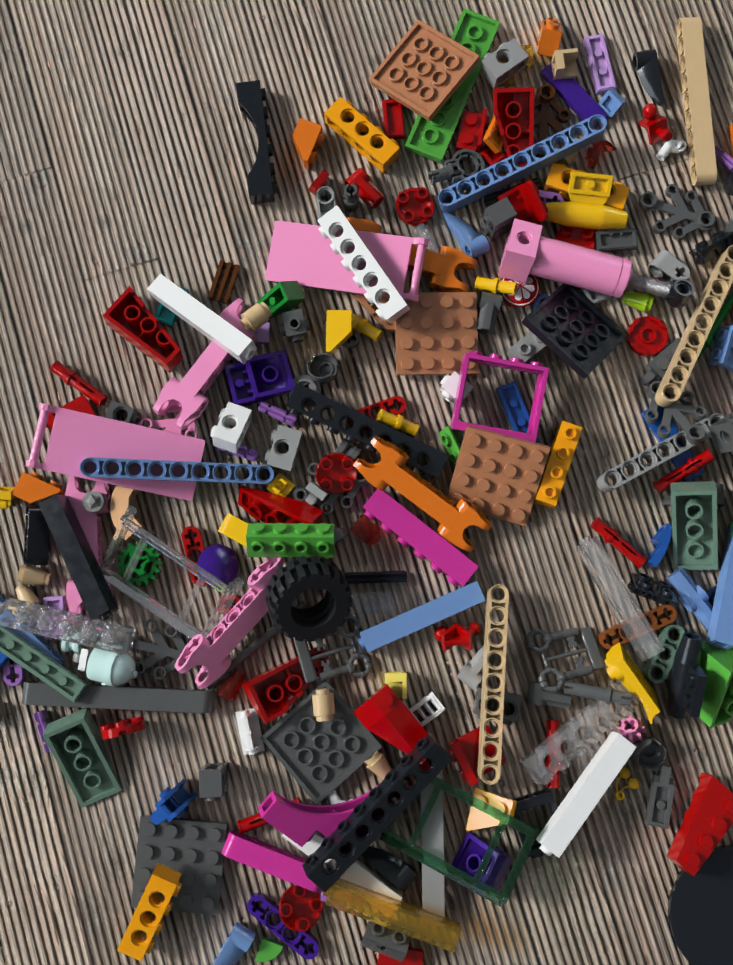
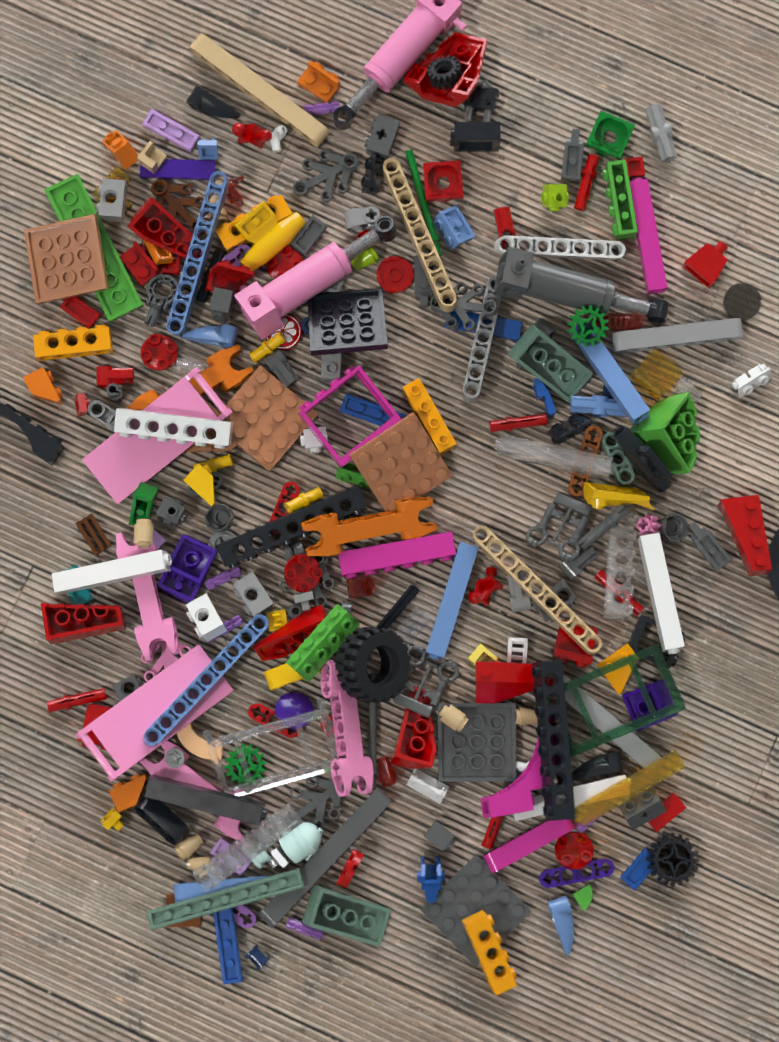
camera: 50 degrees left, 0 degrees up
(633, 783) = (685, 556): yellow piece -> none
(705, 458) = (512, 313): red pin -> none

